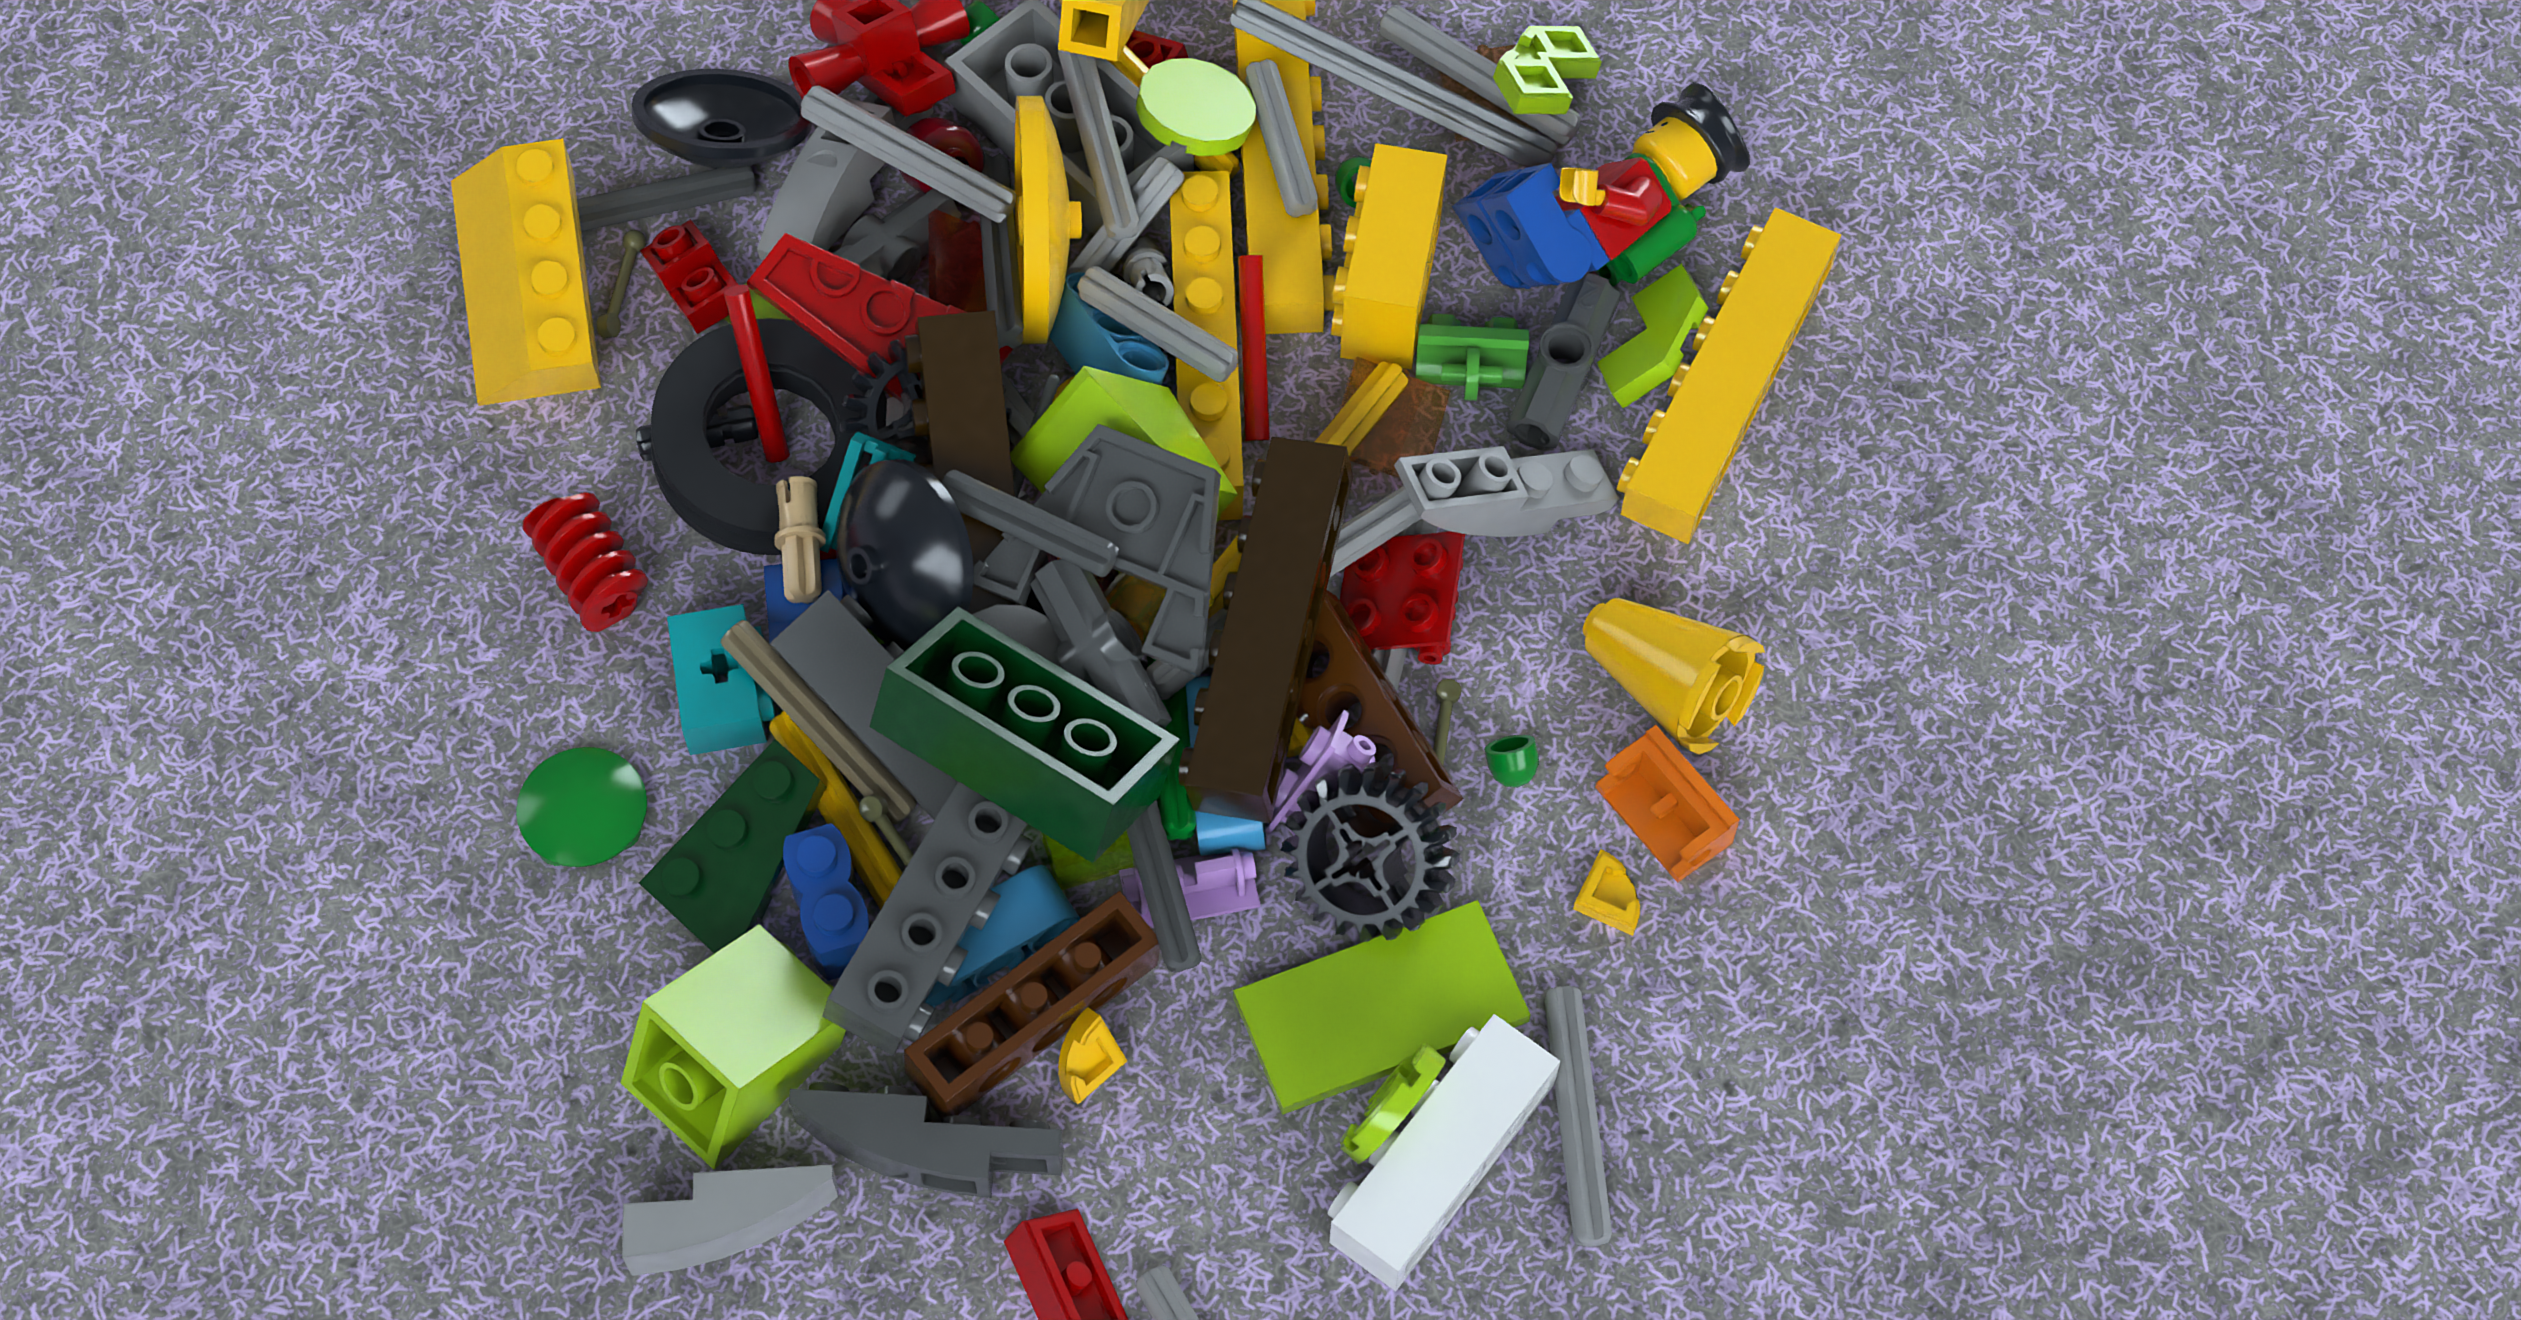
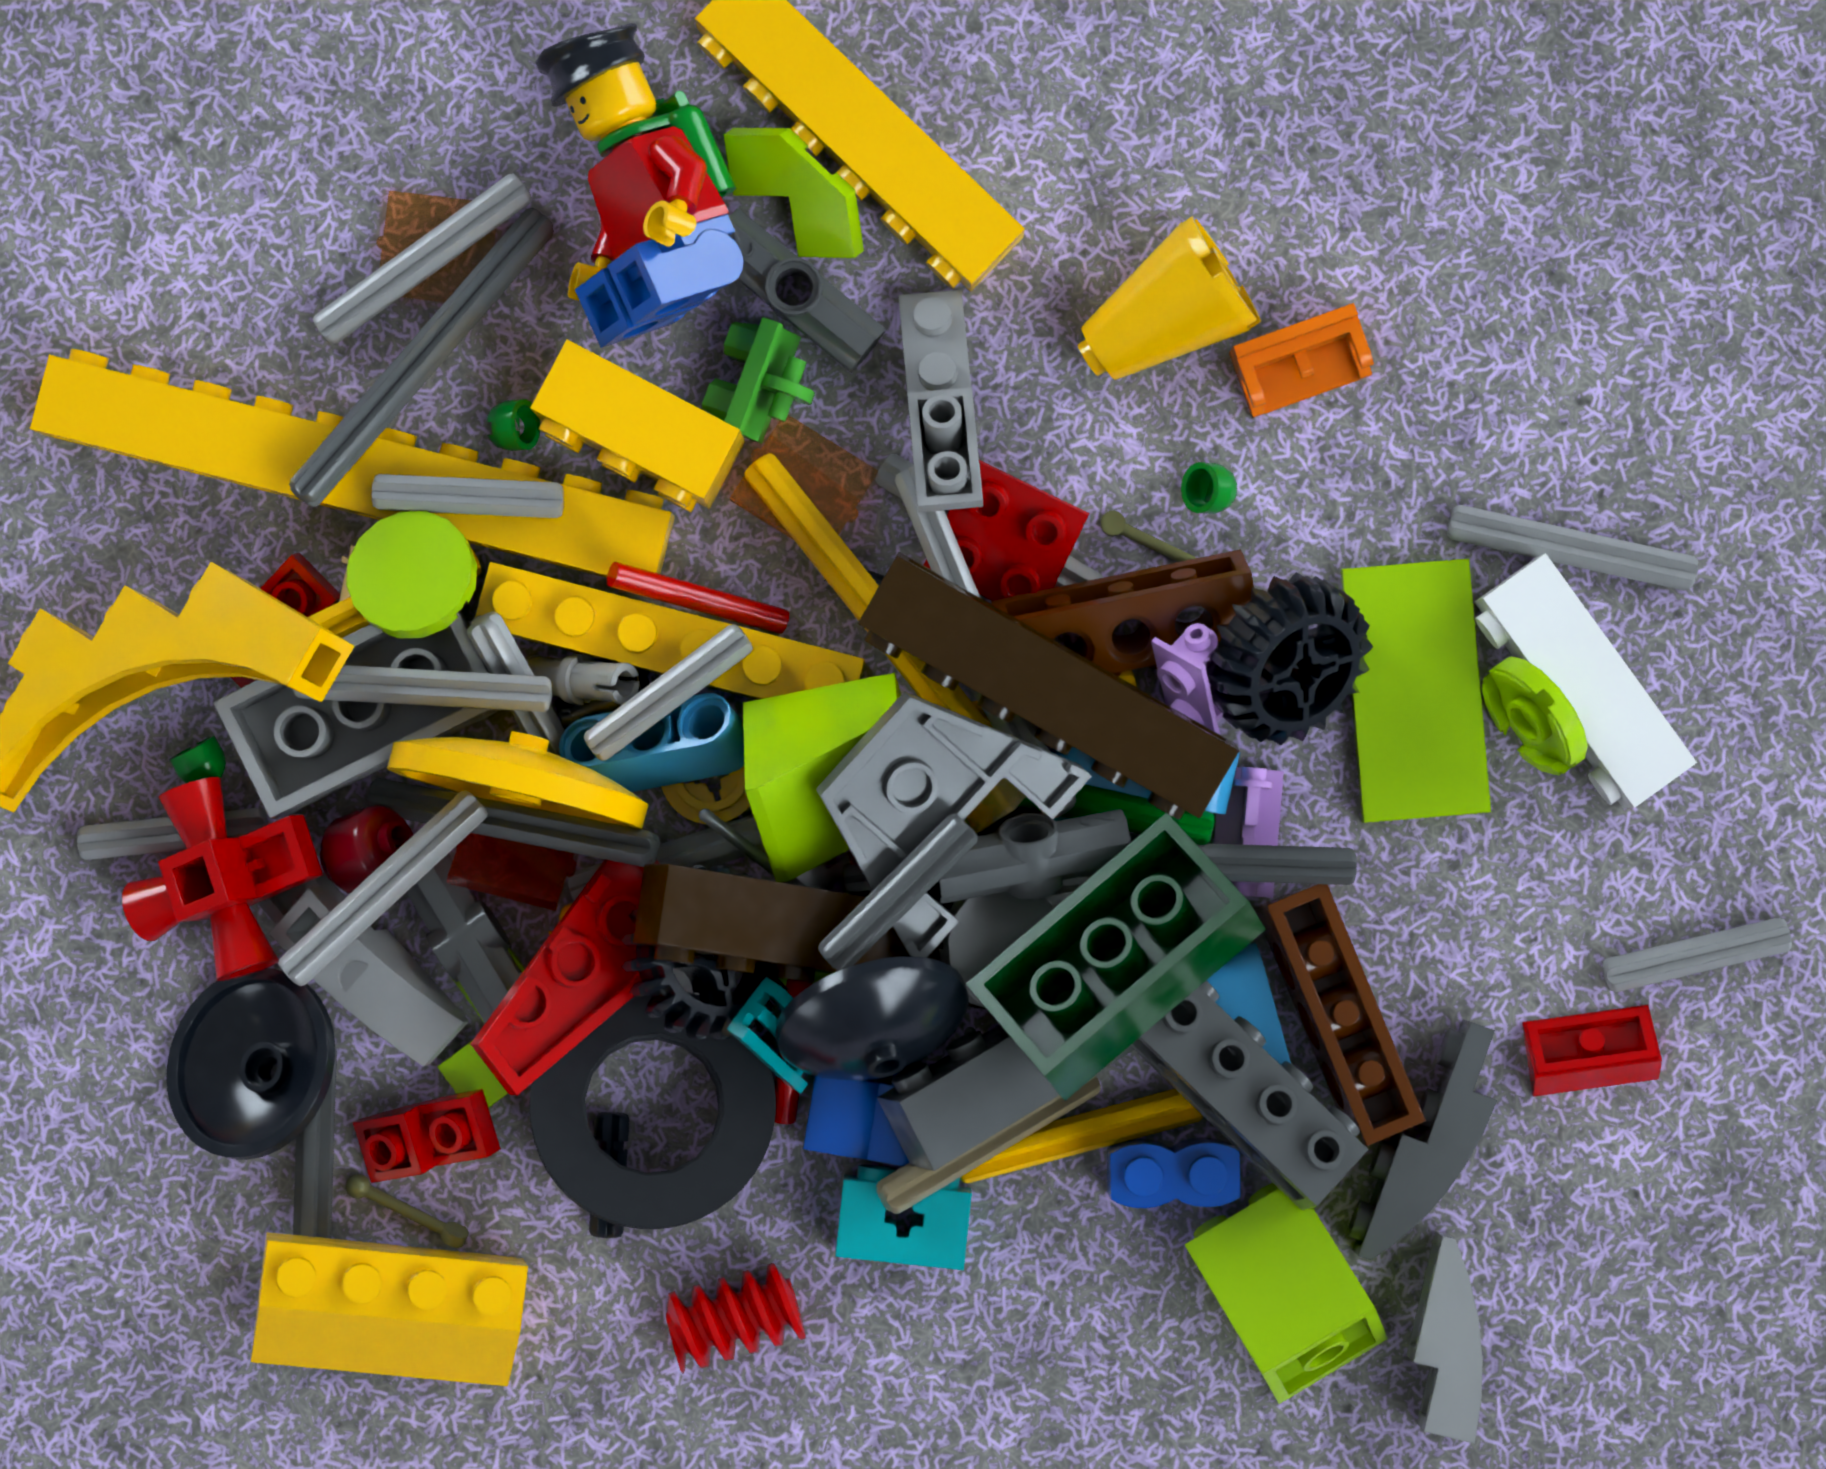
camera: 75 degrees left, 25 degrees up
(581, 807) = (992, 1379): green dish -> none
(731, 857) = (1093, 1248): dark green wing -> none
(756, 373) = (595, 1105): red bar -> none
(799, 539) = (800, 1109): tan axle -> none
(875, 809) = (1088, 1106): olive hinge -> none
(1087, 1056) = (1392, 974): yellow tile -> none
(1534, 68) = (451, 212): lime tile -> none
(1609, 895) = (1367, 443): yellow tile -> none

